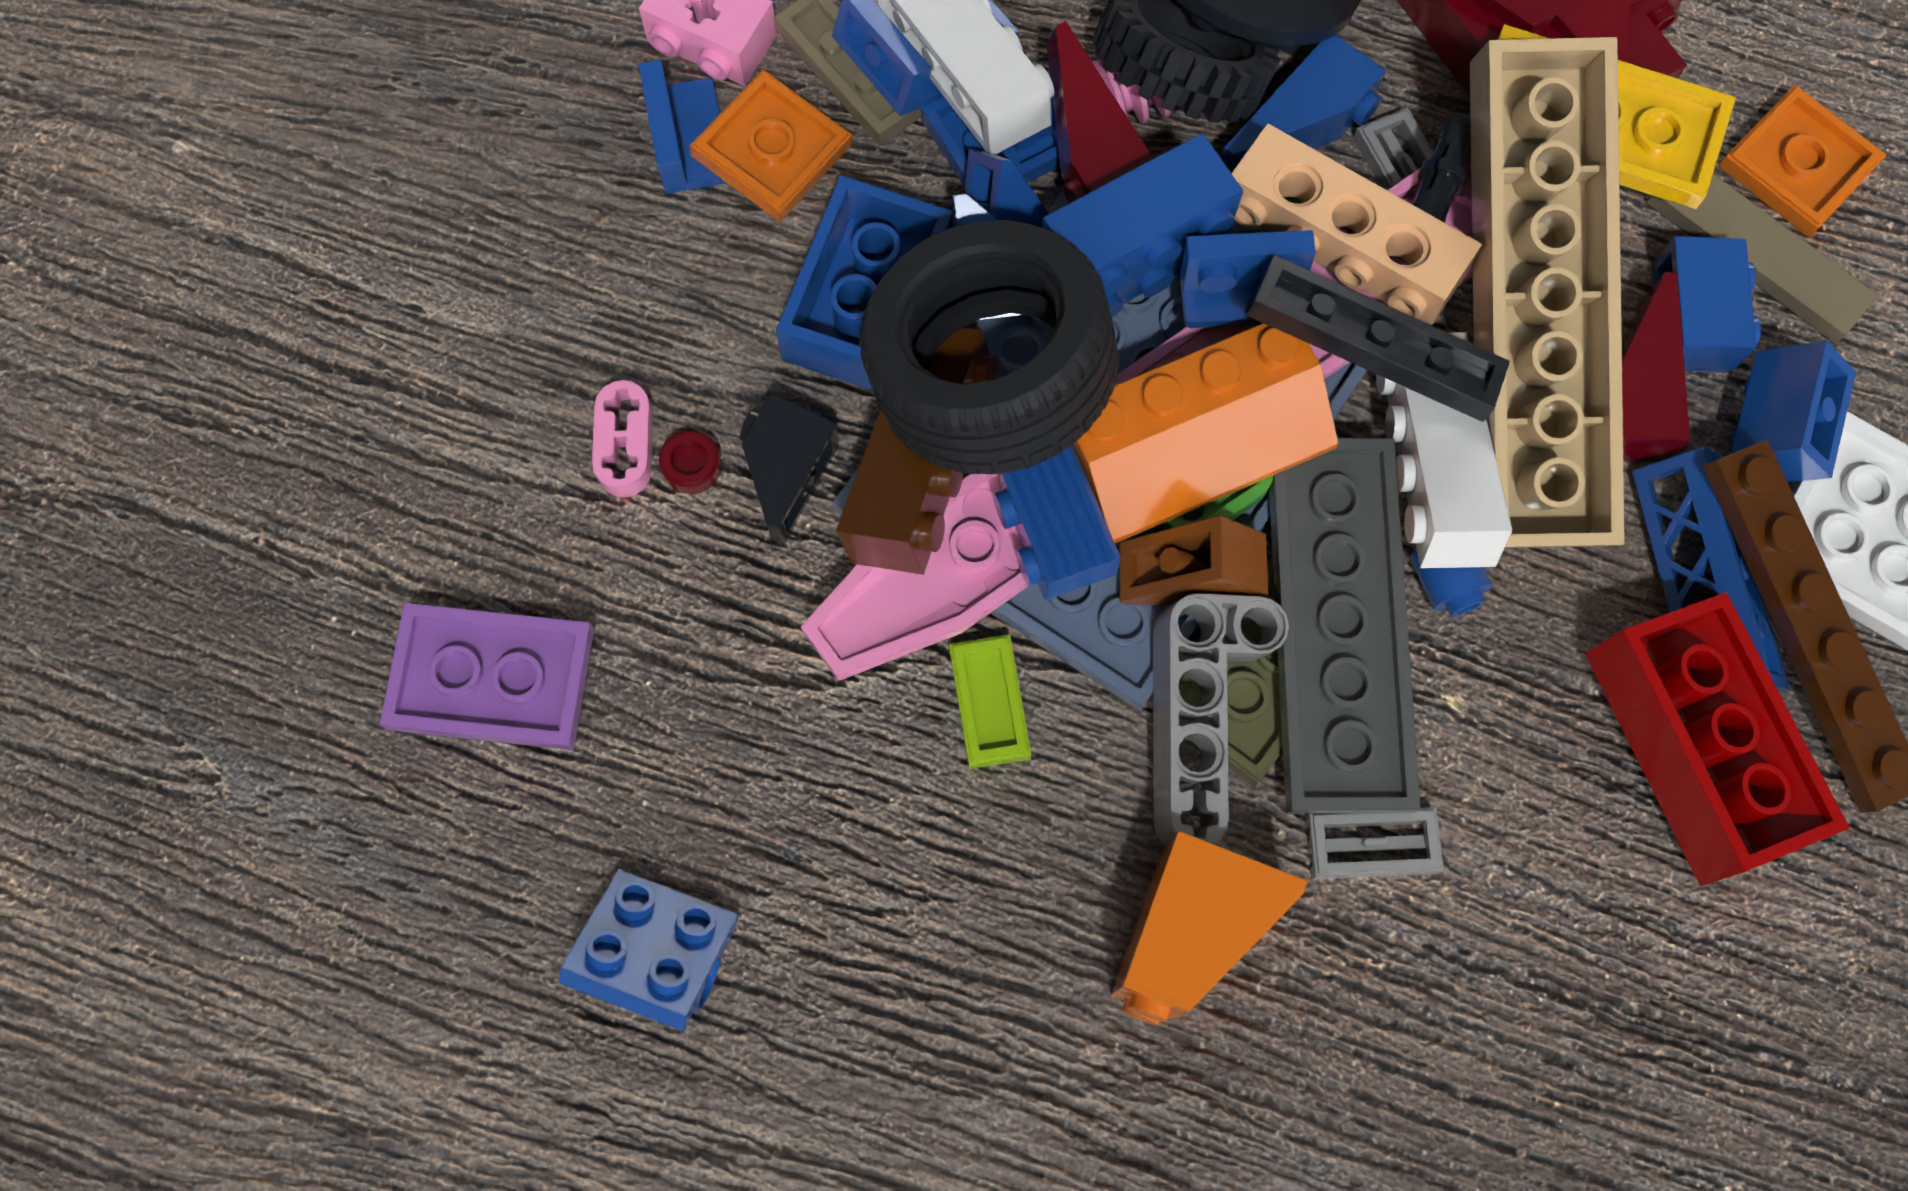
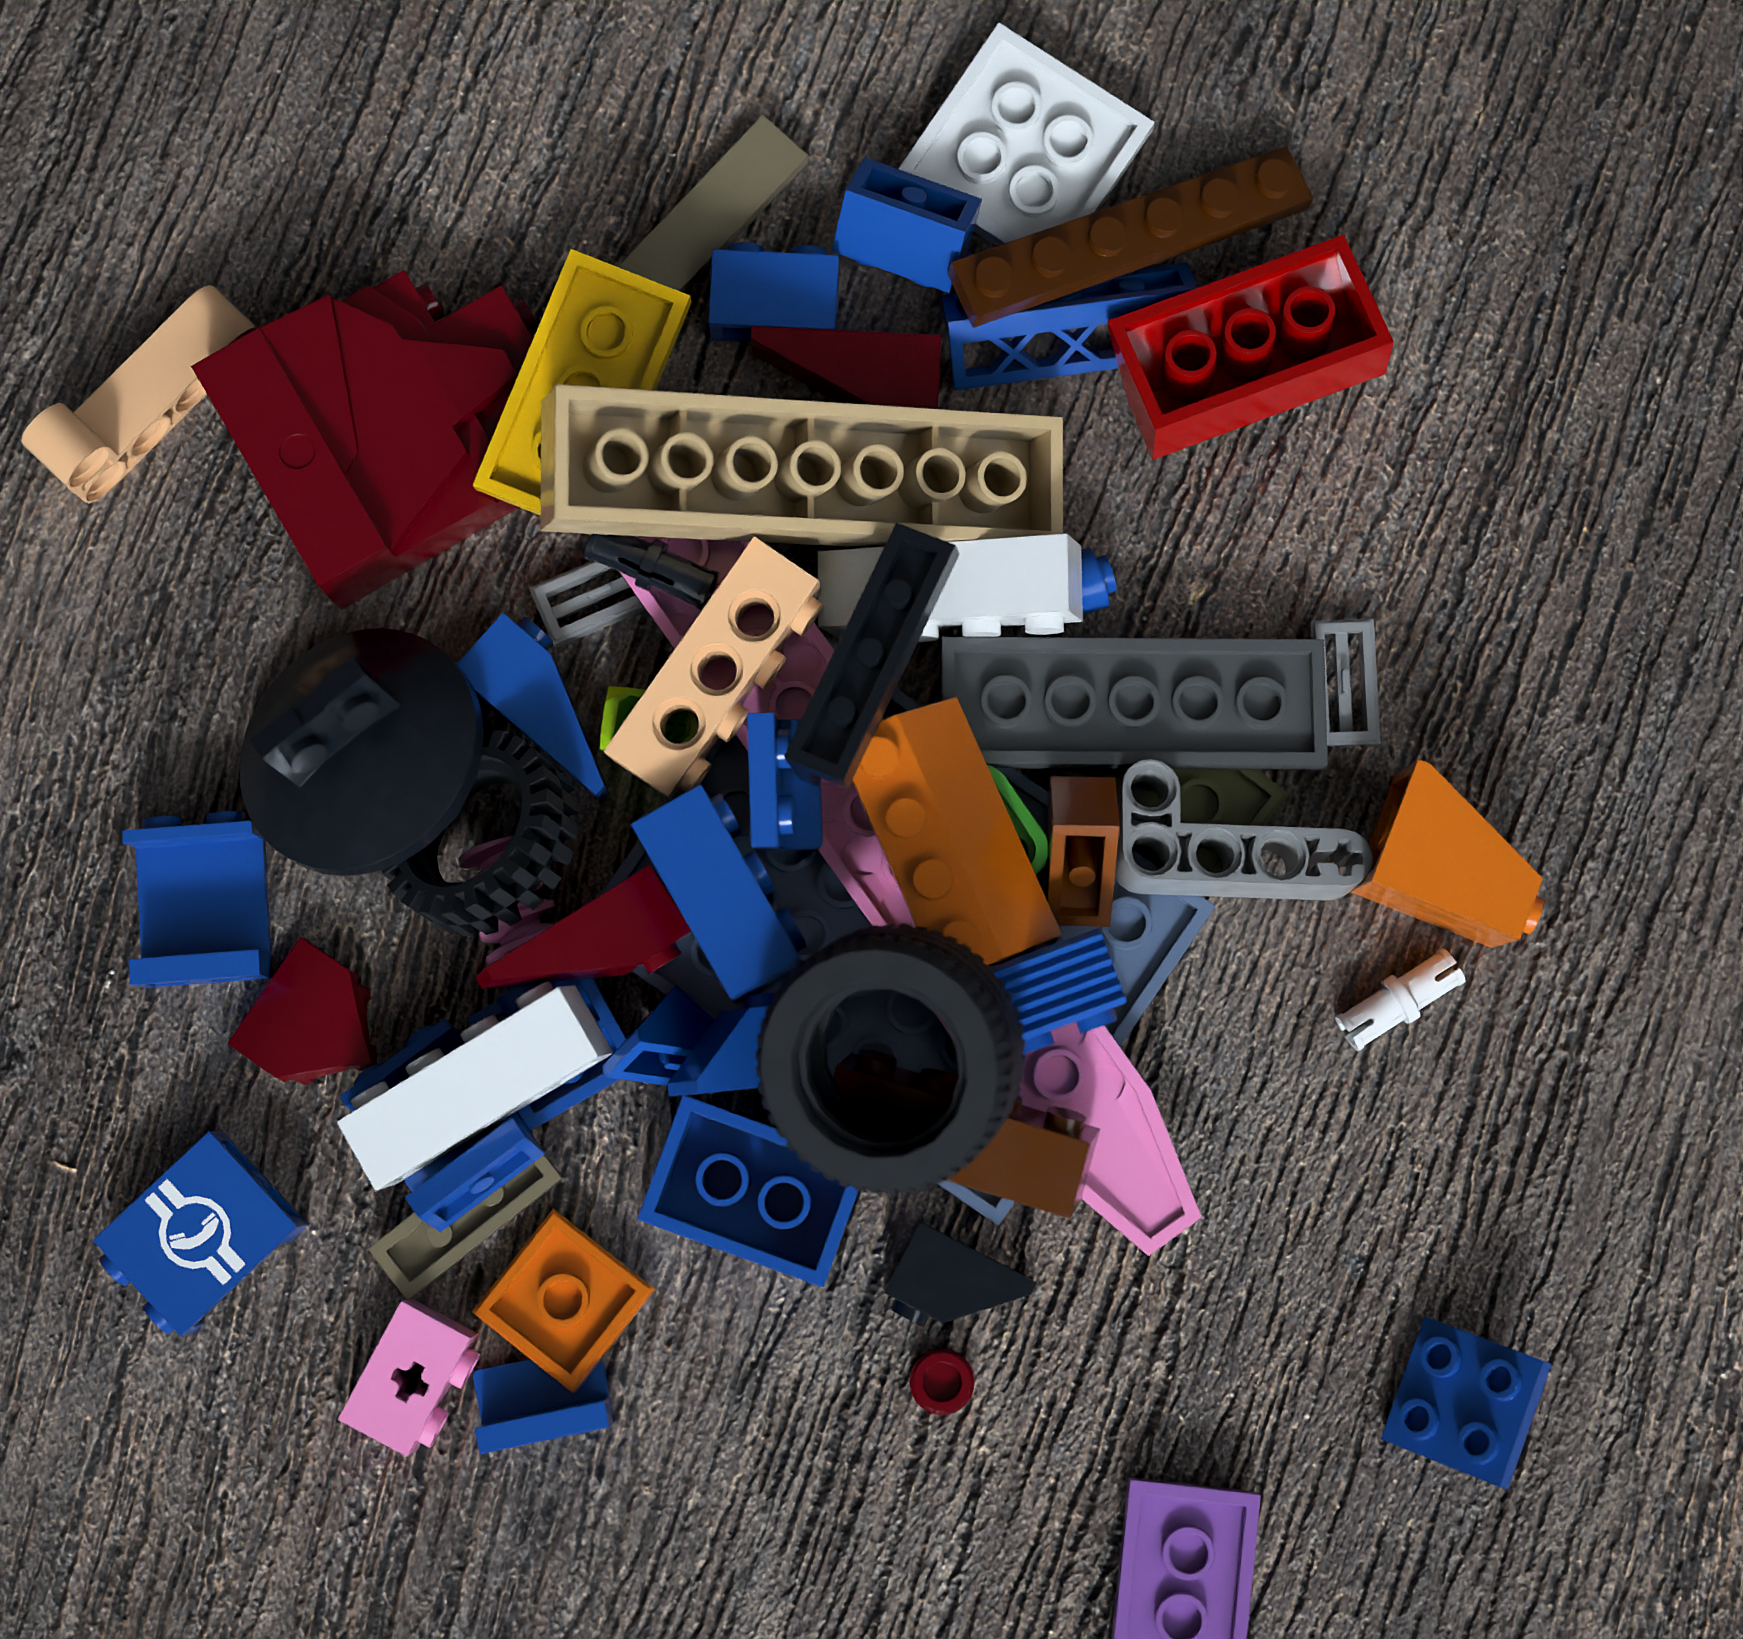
camera: 90 degrees left, 10 degrees up
(636, 439) = (916, 1471): bright pink beam -> none
(989, 702) = (1204, 1061): lime tile -> none
(1055, 894) = (1400, 999): none -> white pin
(1802, 160) = (595, 168): orange tile -> none

